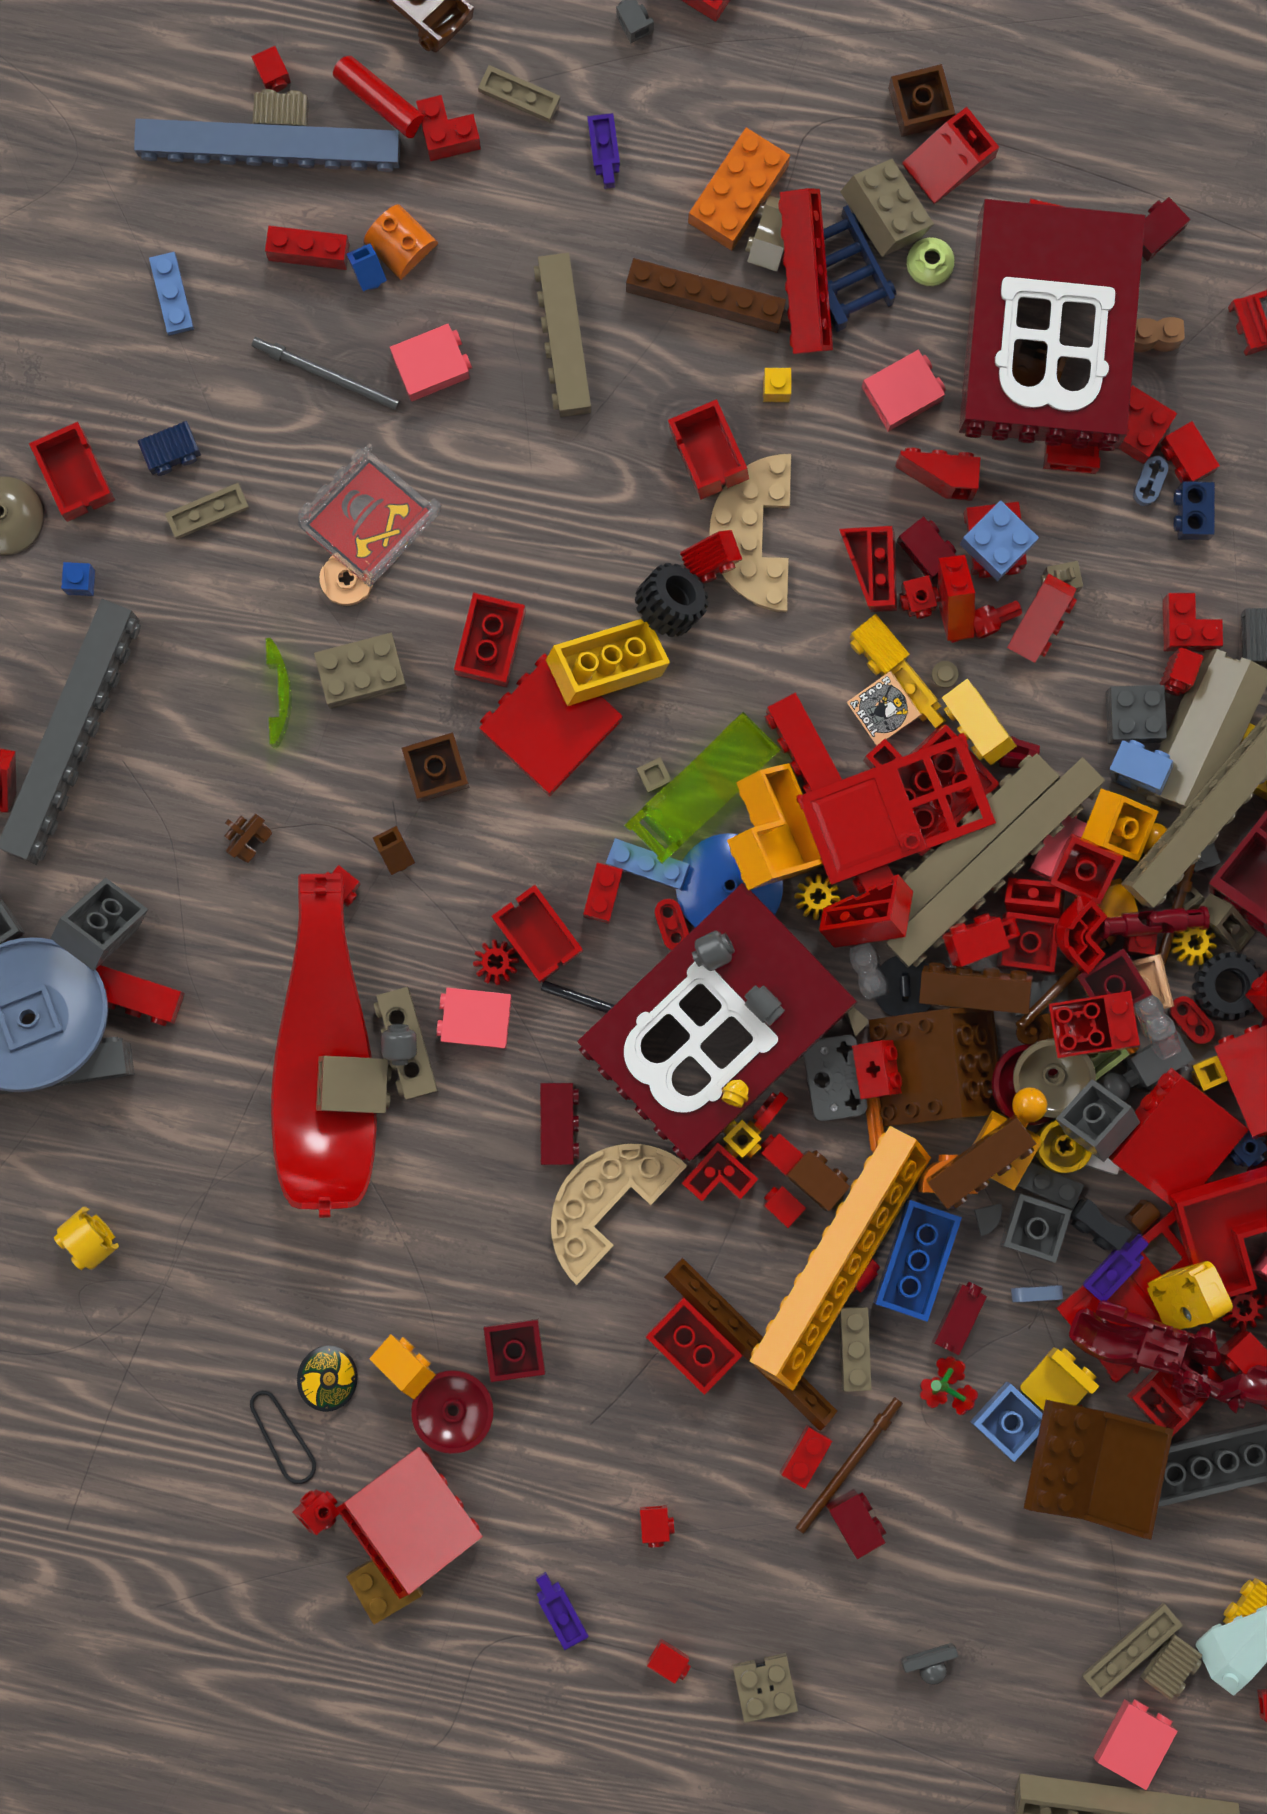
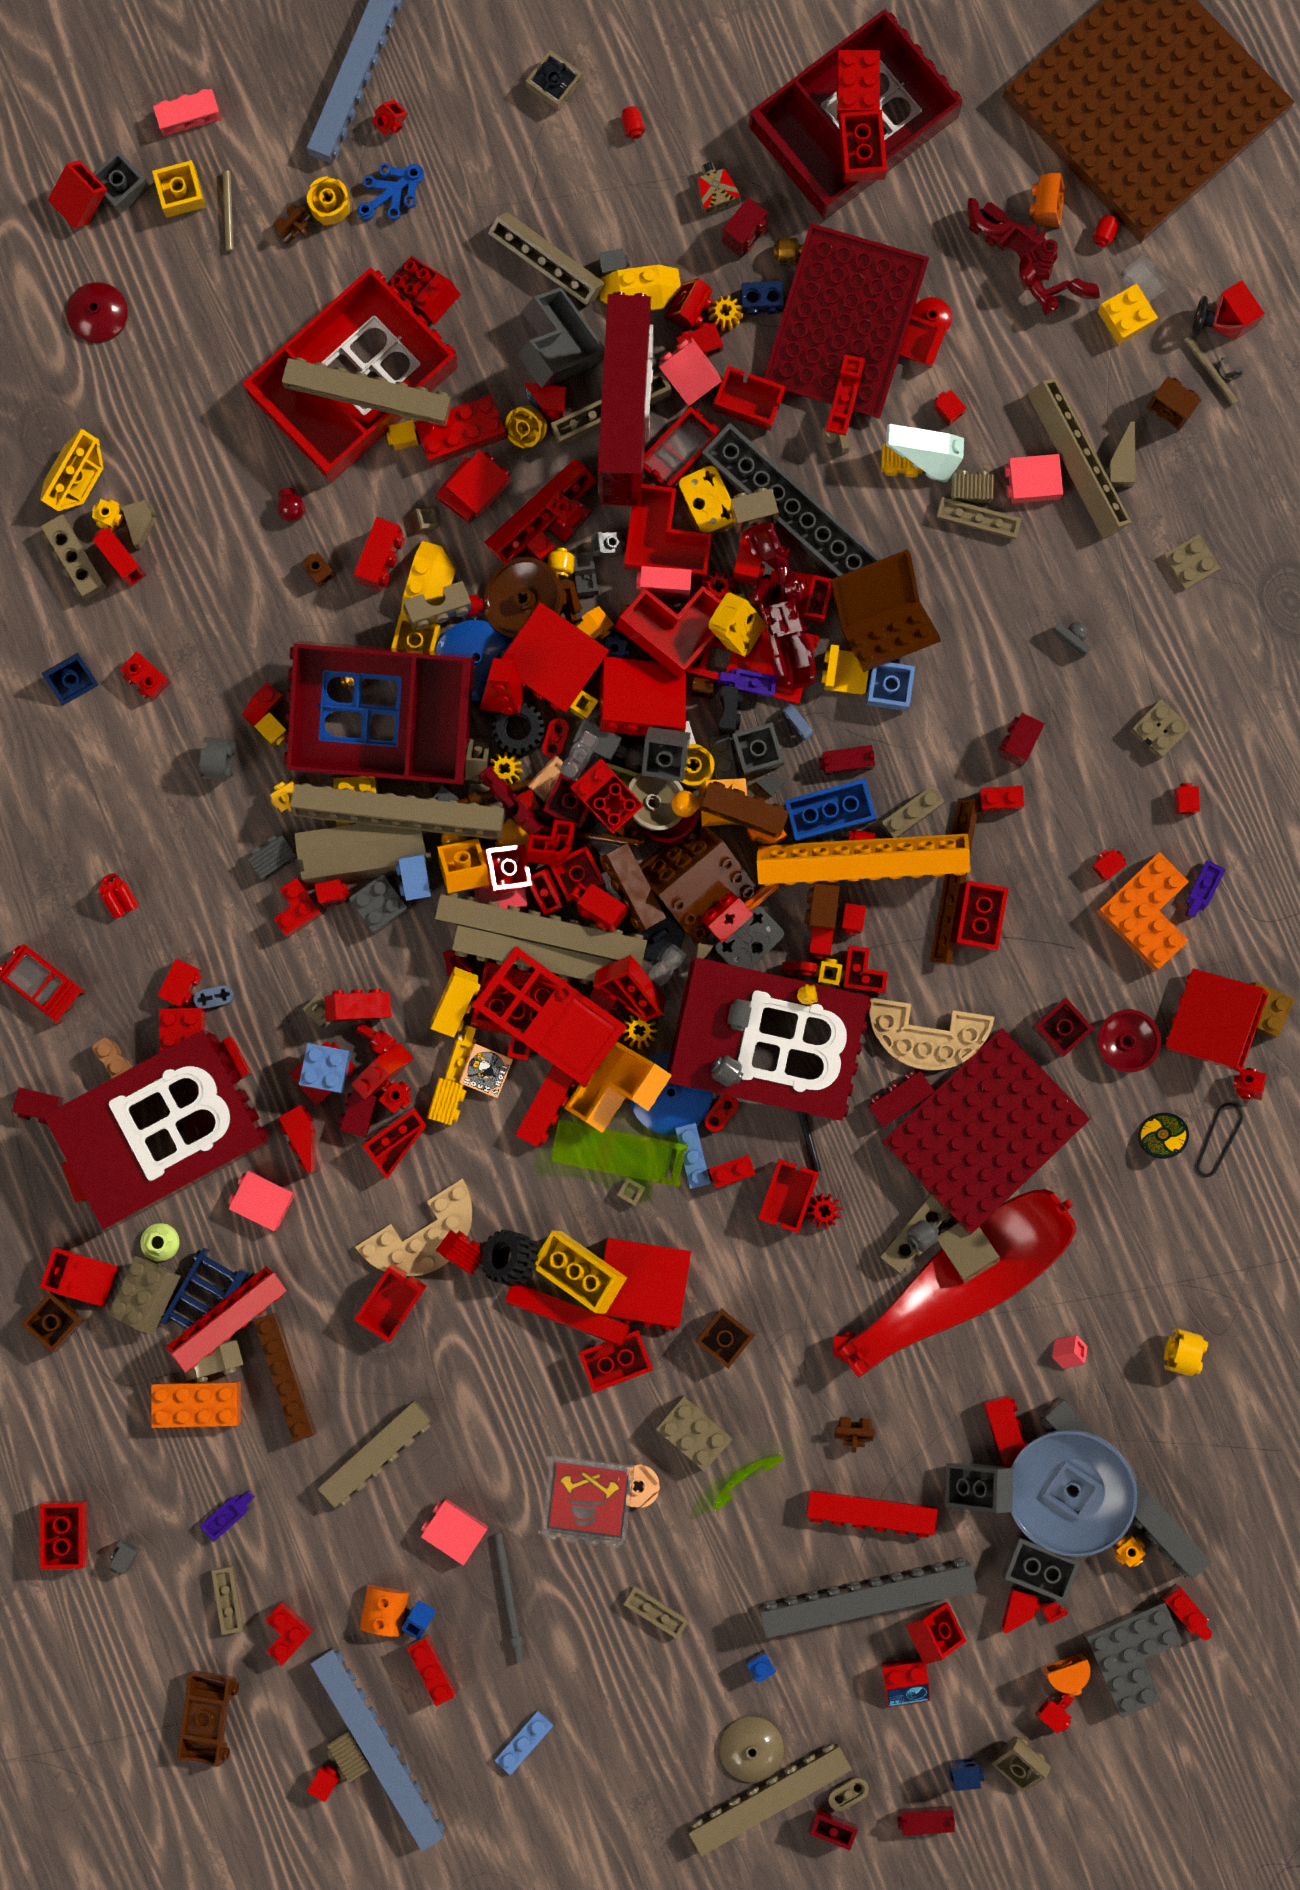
camera: 120 degrees left, 0 degrees up
(72, 471) = (692, 1722): red piece -> none
(152, 798) = (871, 1512): none -> red brick
(169, 449) = (631, 1667): dark blue brick -> none
(172, 1119) = (1069, 1351): none -> coral panel
(378, 96) = (294, 1695): red brick -> none
(394, 850) = (797, 1328): reddish brown brick -> none
(403, 1366) = (1122, 1092): light orange brick -> none
(462, 1191) = (986, 1131): none -> dark red plate
(474, 1018) = (869, 1199): coral brick -> none
(571, 622) = (567, 1314): none -> red tile
(578, 1515) = (1136, 914): none -> orange piece
(777, 385) = (314, 1287): yellow brick -> none
(881, 1423) = (946, 766): reddish brown bar -> none
(935, 1390) = (902, 745): red plant -> none
(945, 674) = (435, 1046): dark tan plate -> none
(1202, 512) = (213, 949): dark blue brick -> none

